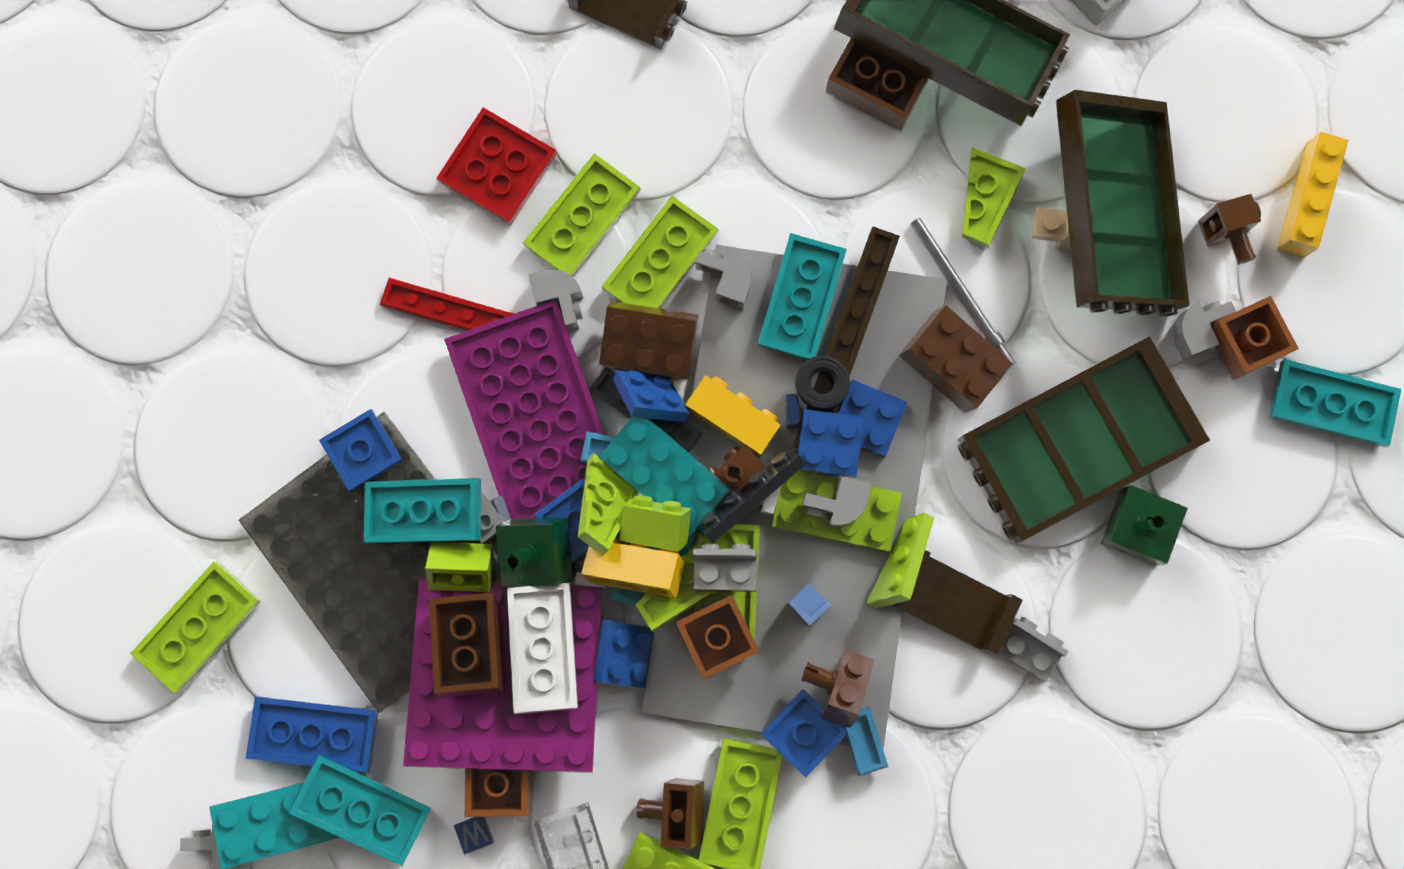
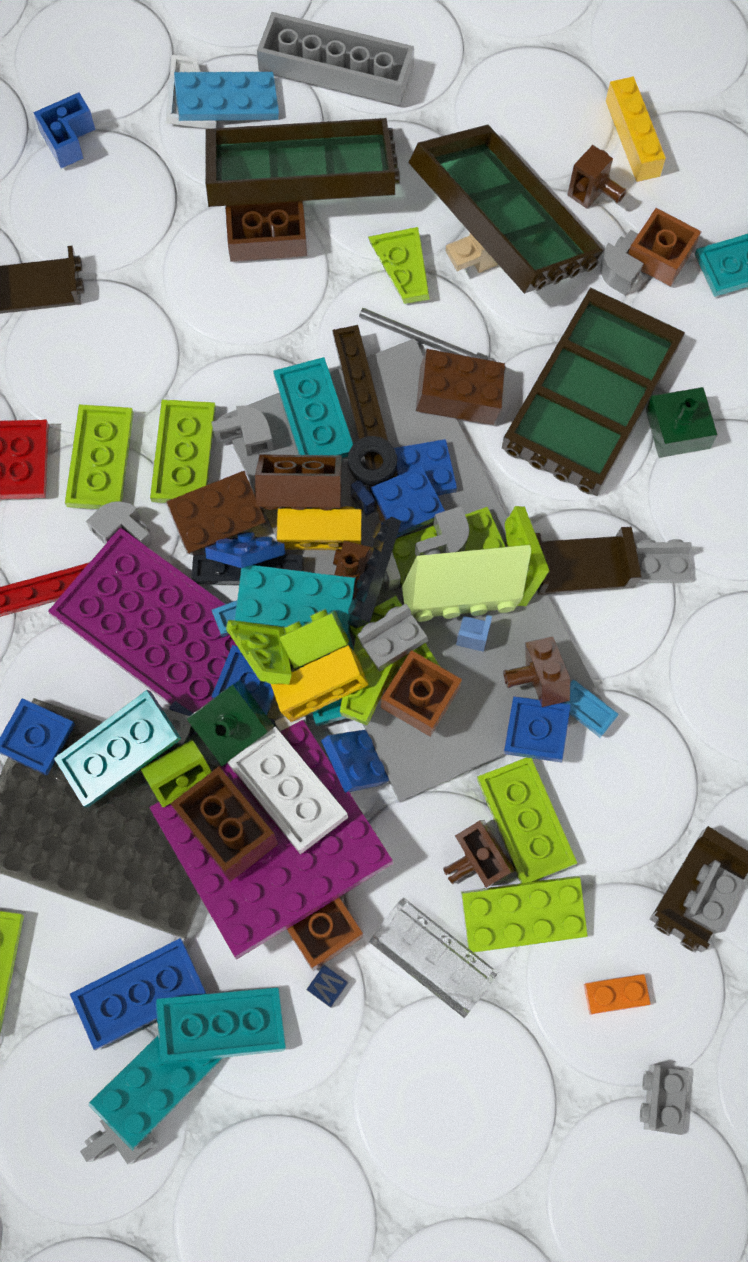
camera: 35 degrees left, 10 degrees down
(740, 361) = (298, 481): none -> reddish brown brick
(825, 562) = (466, 582): none -> yellowish green slope

